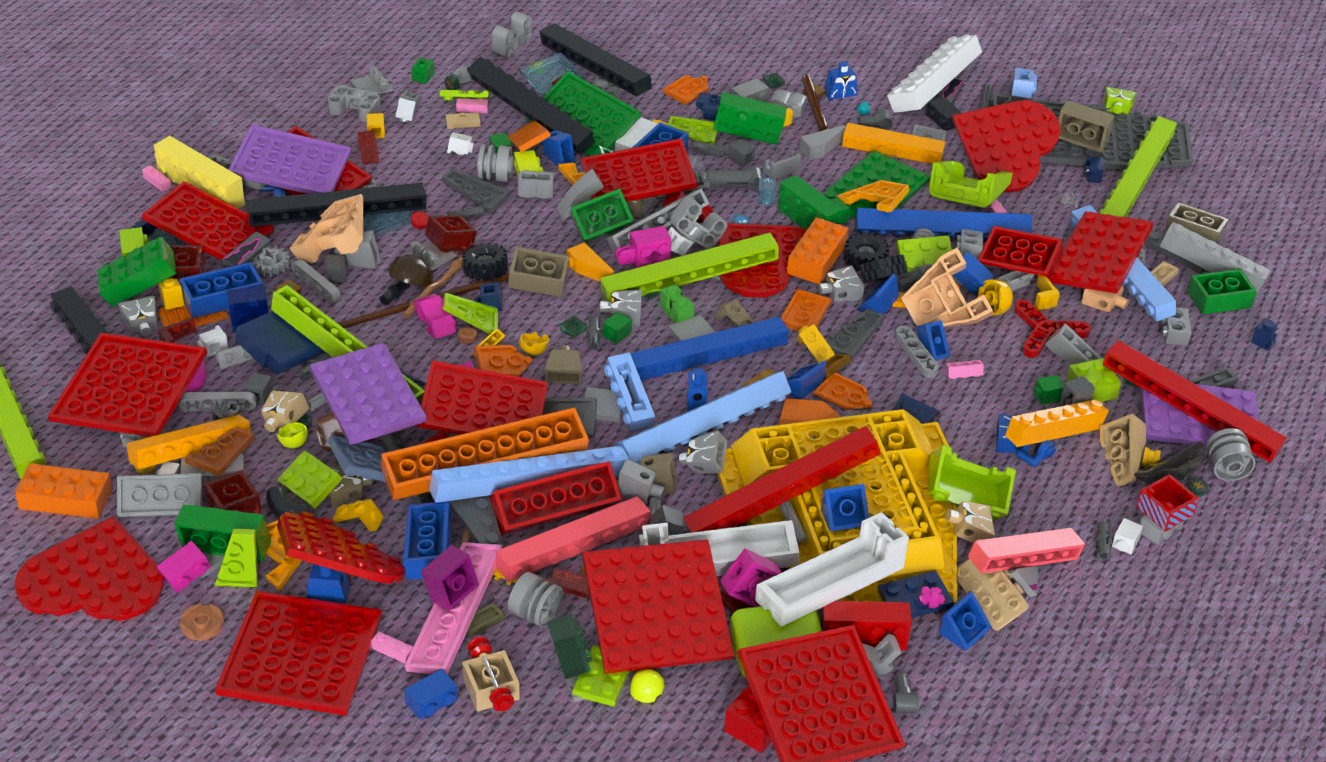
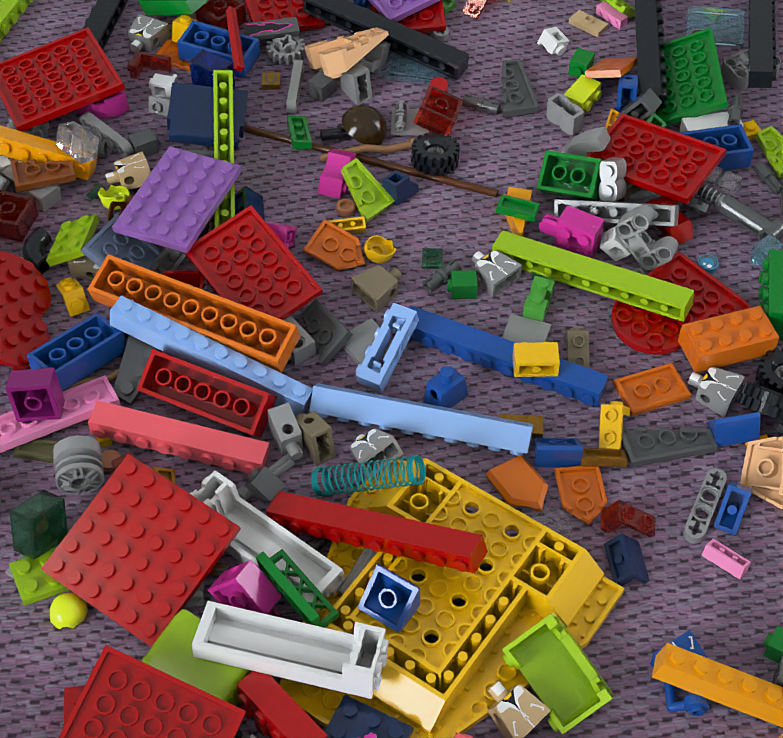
camera: 50 degrees right, 10 degrees up
(218, 409) = (77, 142): none -> clear piece
(236, 270) = (235, 40): none -> red axle
(269, 442) = (93, 192): none -> clear green tile
(368, 307) = (299, 132): none -> green plate
(498, 163) = (552, 73): light grey wheel -> none
(538, 271) = (460, 190): dark tan brick -> none
(586, 146) = (642, 106): none -> dark grey brick
(592, 257) = (518, 208): none -> green tile
(633, 199) = (612, 179): none -> light grey brick
(646, 117) = (735, 110): none -> dark grey axle
(696, 494) = (409, 468): none -> teal piece
(731, 333) = (536, 359): none -> yellow brick
(785, 548) = (292, 593): none -> green fence
(885, 386) = (625, 514): none -> clear red bracket

